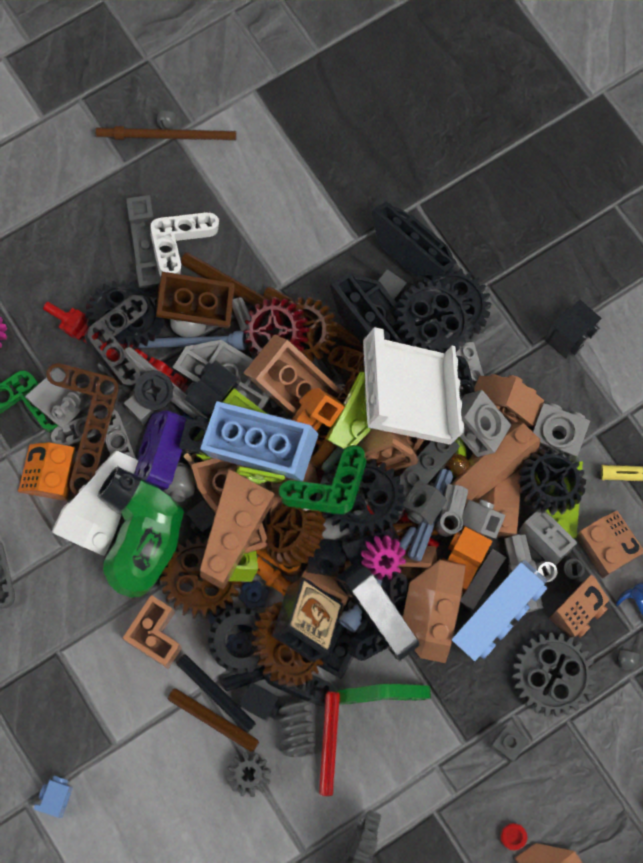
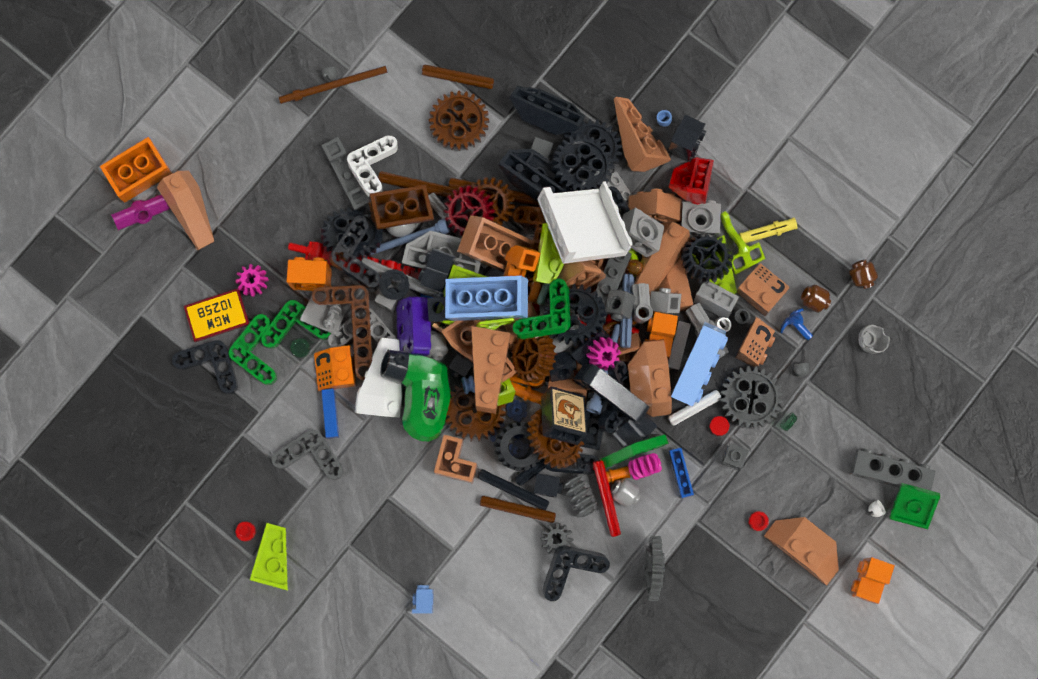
camera: 10 degrees left, 5 degrees up
(15, 432) = (300, 348): none -> clear green tile
(22, 524) = (330, 413): none -> blue piece
(55, 345) = (308, 274): none -> orange brick
(202, 541) = (468, 384): none -> medium blue bush
(254, 809) = (570, 562): none -> black beam
(282, 230) = (471, 109): none -> reddish brown gear
(318, 170) = (457, 76): none -> reddish brown axle
(353, 717) = (616, 474): none -> orange pin
(355, 743) = (625, 492): none -> light grey head
(389, 670) = (631, 433): none -> black brick
(390, 718) = (645, 466): none -> dark pink gear
(434, 742) = (681, 473): none -> blue piece
(470, 666) = (689, 411): none -> white axle
(501, 697) = (719, 426): none -> red tile
(511, 315) = (638, 143): none -> nougat wedge
(550, 296) = (662, 116): none -> medium blue hinge
(564, 381) = (692, 180): none -> red wedge
(591, 721) = (788, 422): none -> clear green tile
(600, 486) = (743, 249): none -> lime piece

